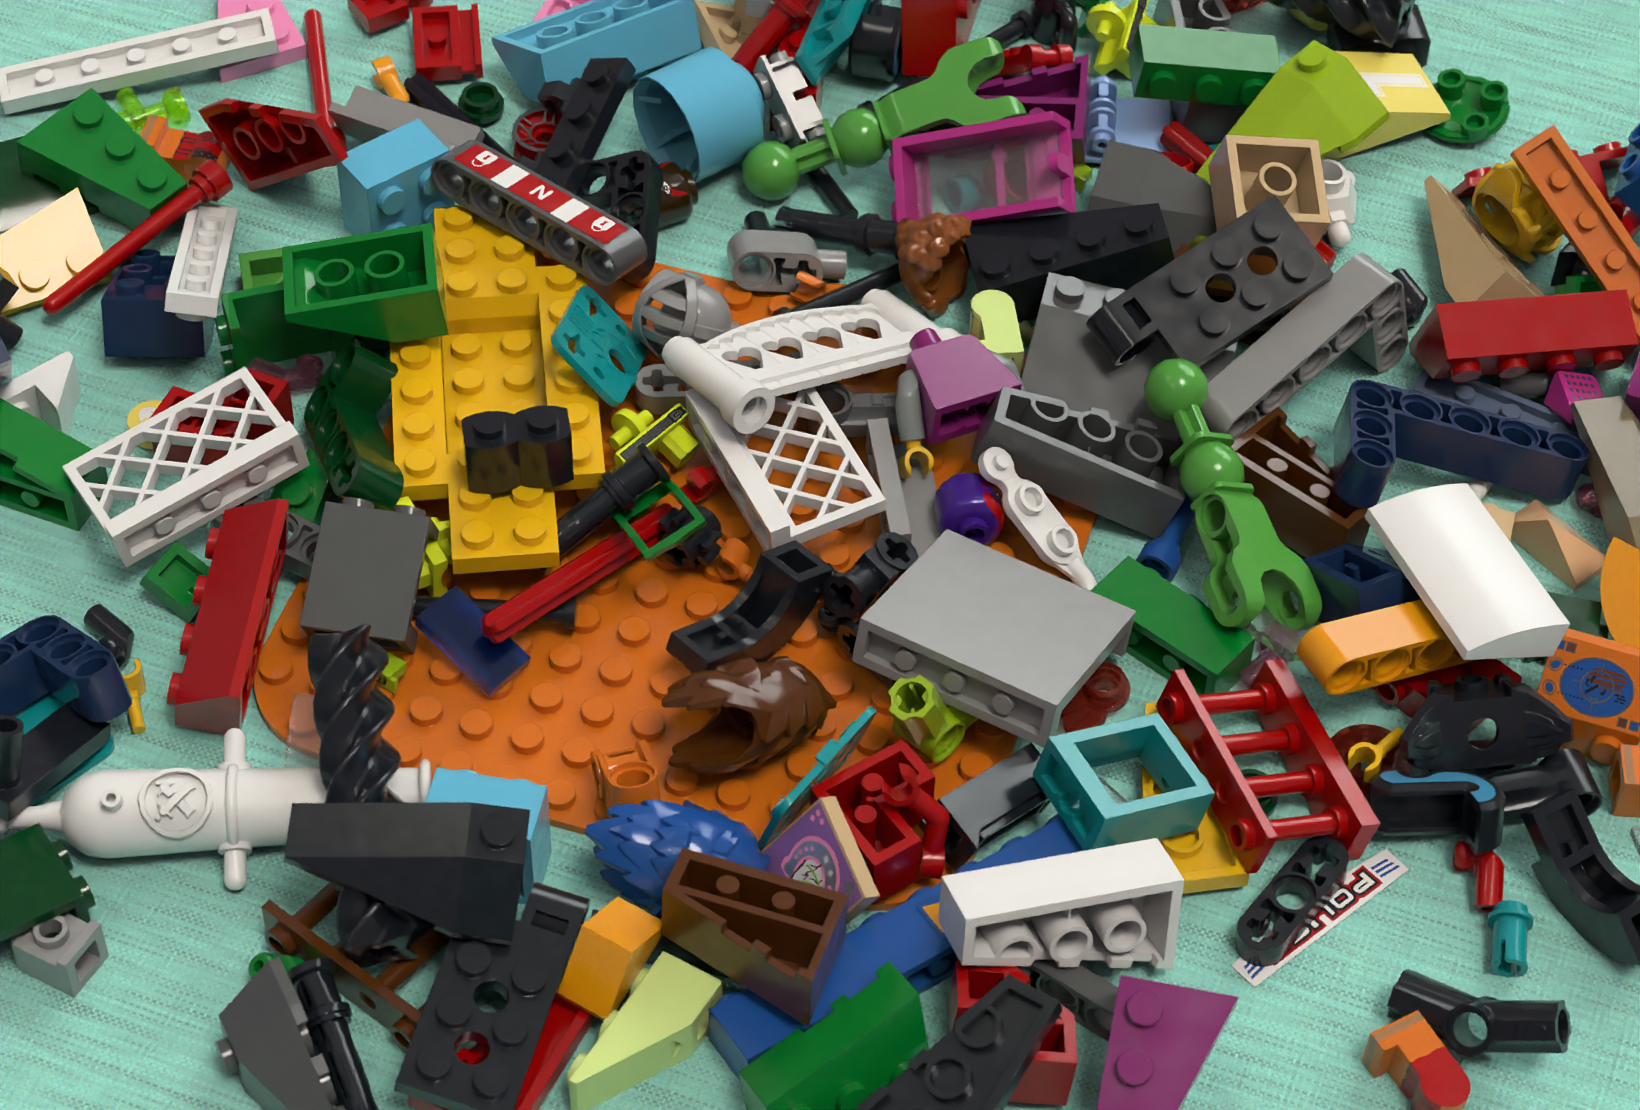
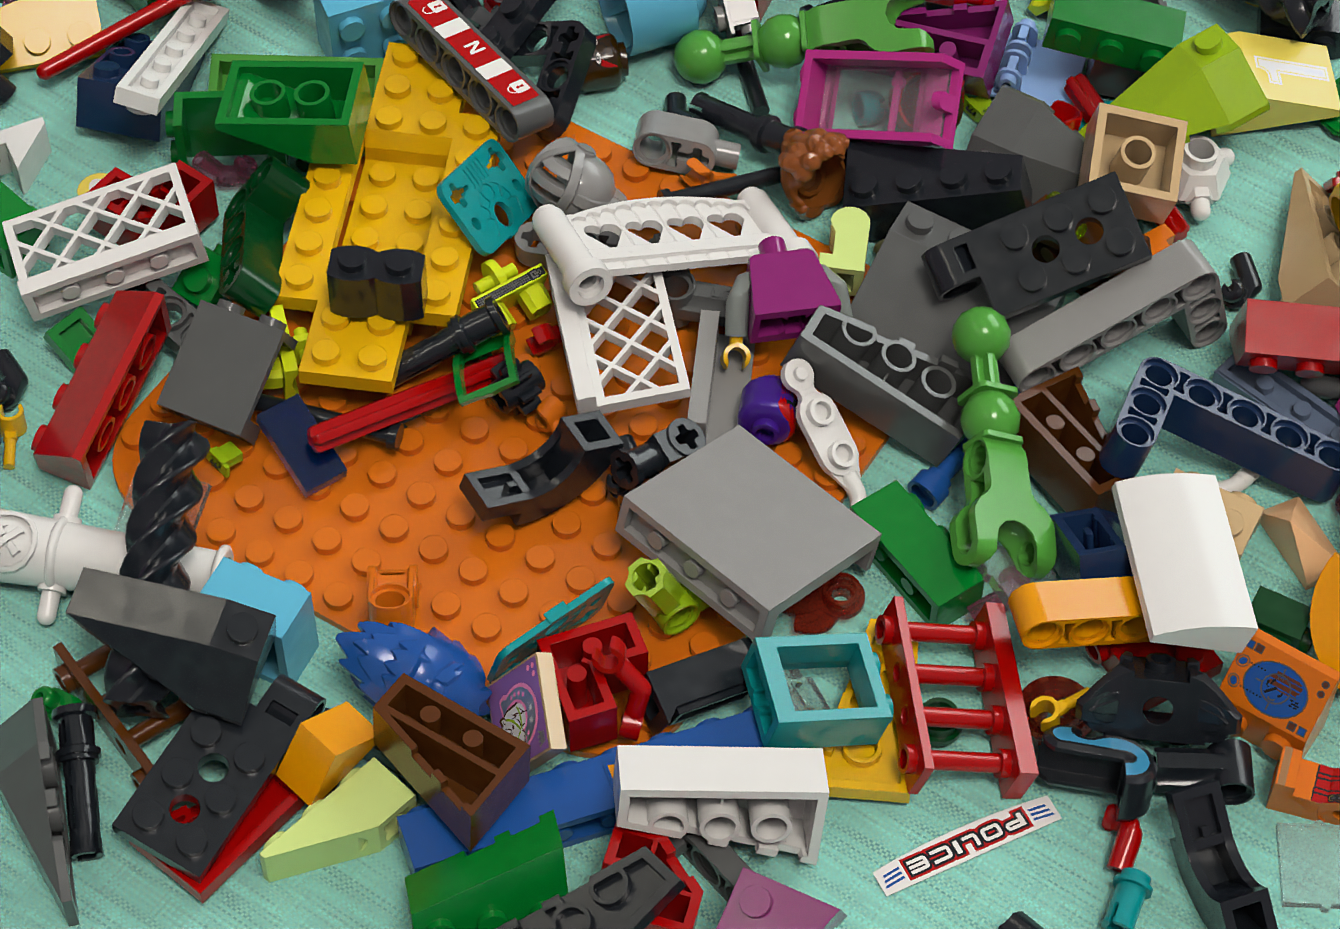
camera: 15 degrees right, 5 degrees up
(758, 713) = (522, 563): reddish brown head -> none
(1291, 922) = (937, 846): black beam -> none

